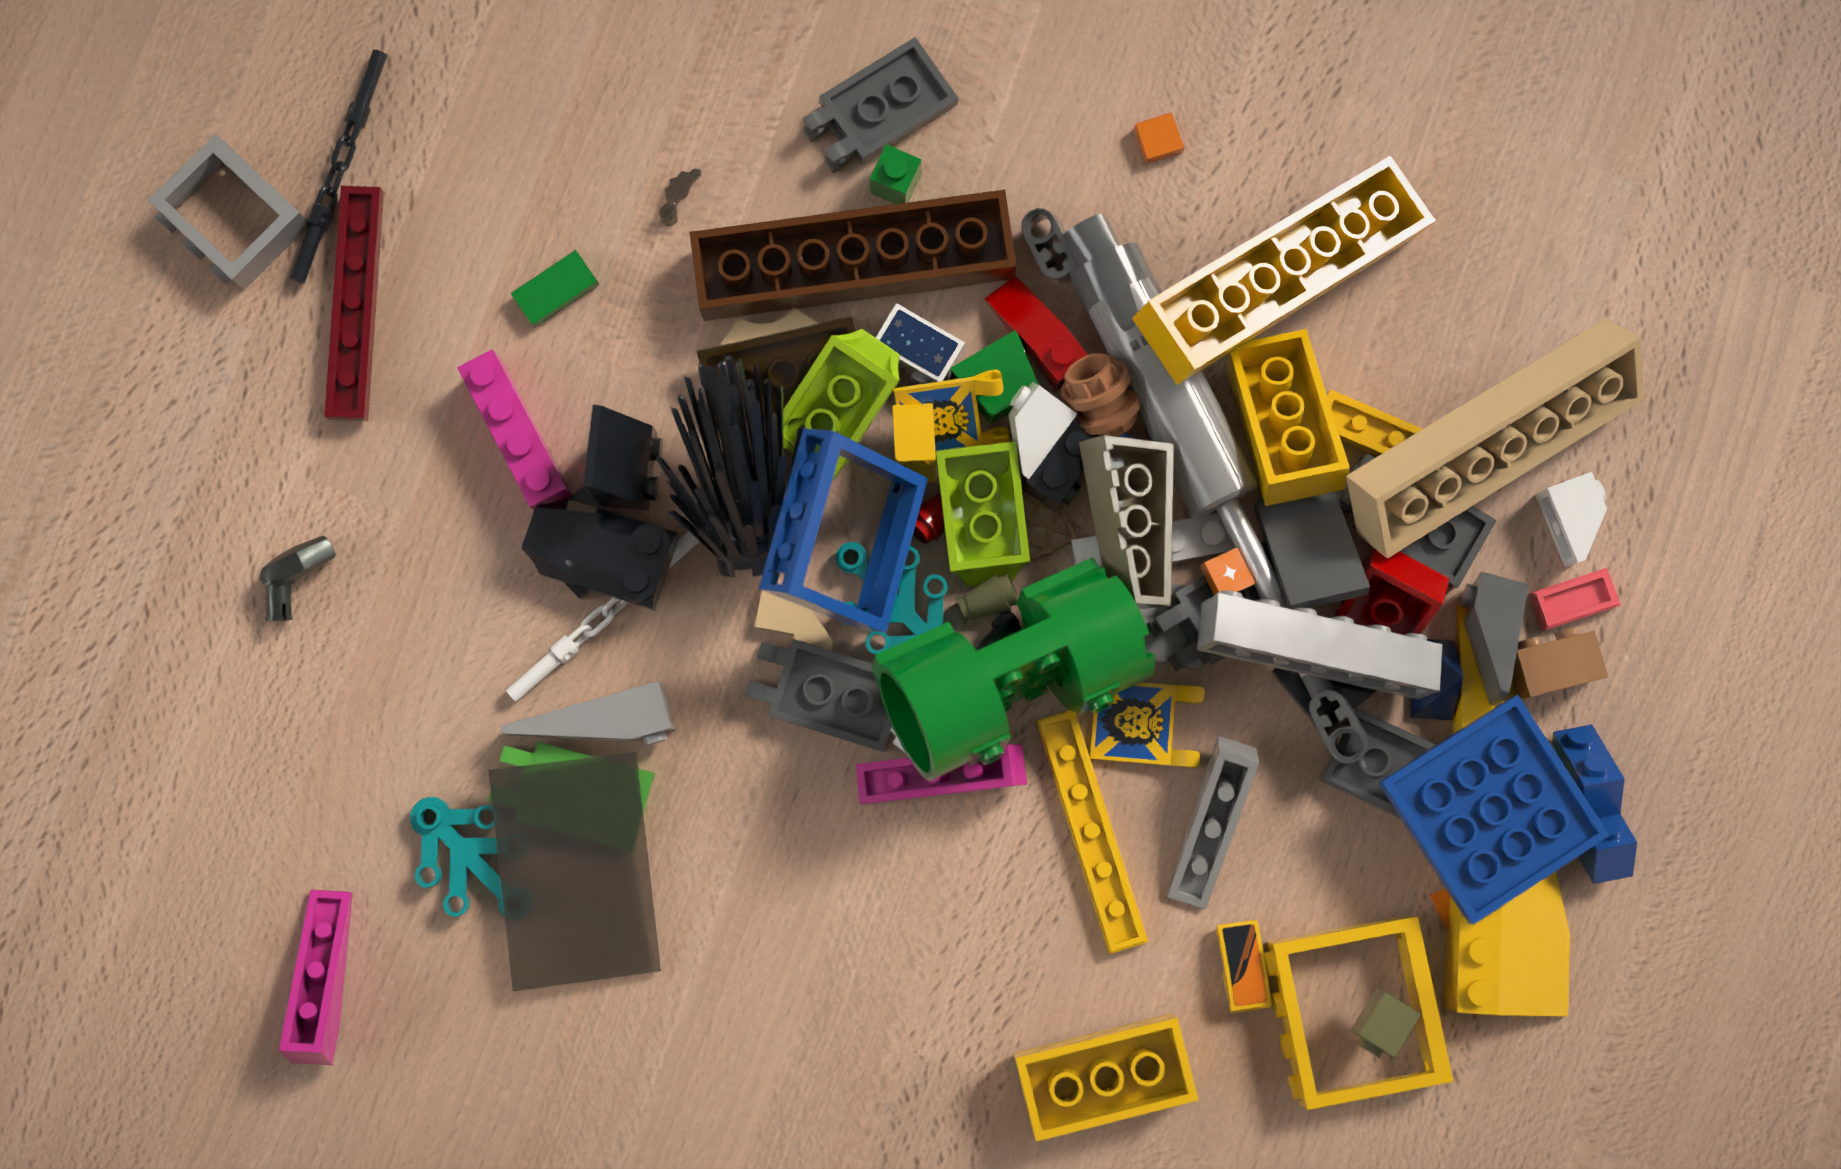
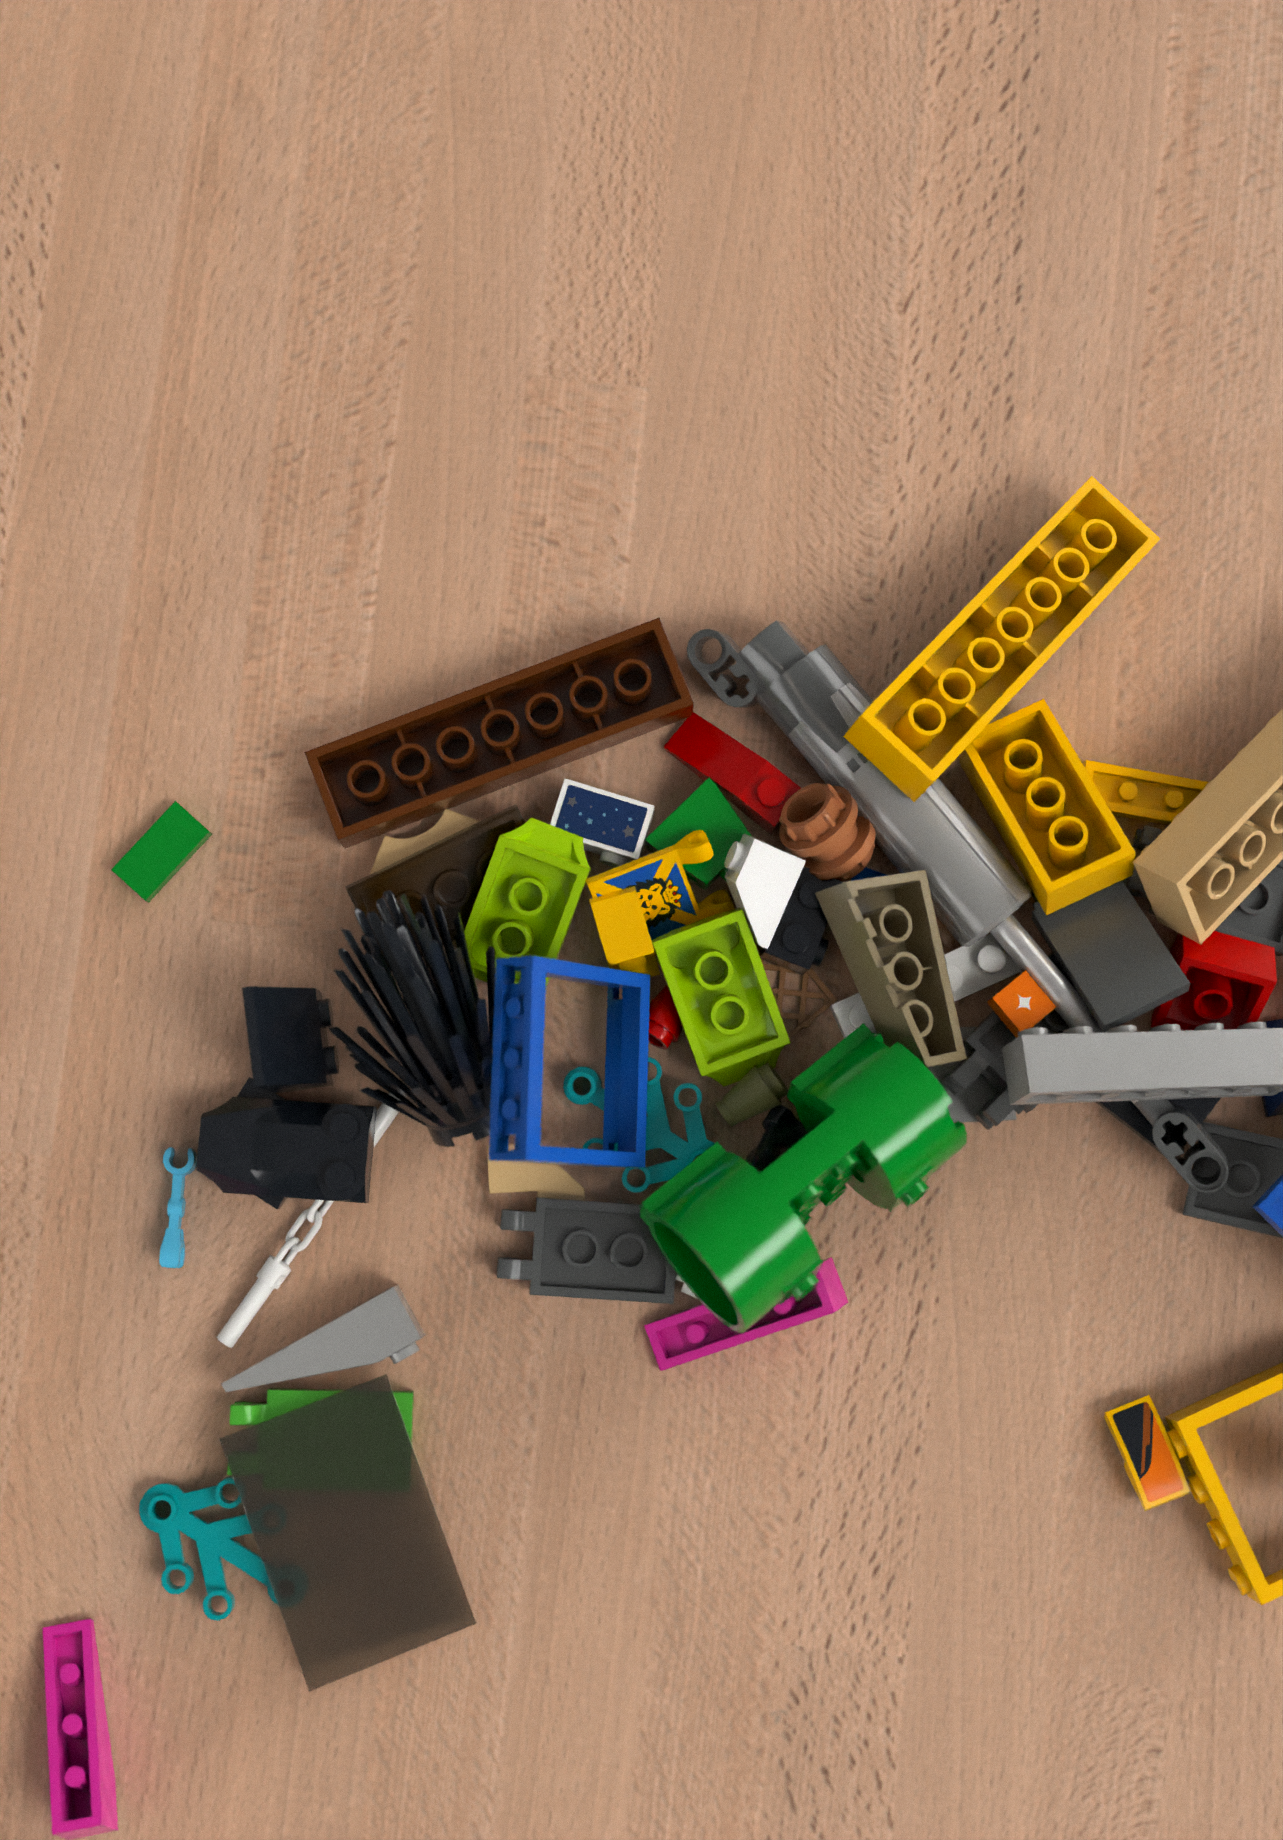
camera: 15 degrees left, 0 degrees up
(488, 607) = (173, 1245): none -> medium azure piece
(514, 430) = (155, 1031): dark pink brick -> none
(676, 191) = (276, 705): clear smoke piece -> none
(880, 105) = (490, 549): dark grey tile -> none
(895, 175) = (527, 629): green brick -> none
(1091, 831) = (935, 1338): yellow tile -> none
(1105, 1076) = (1020, 1623): yellow brick -> none
(1141, 726) = (966, 1202): flag -> none
(1158, 138) = (819, 513): orange tile -> none
(1213, 821) = (1072, 1292): light grey slope -> none

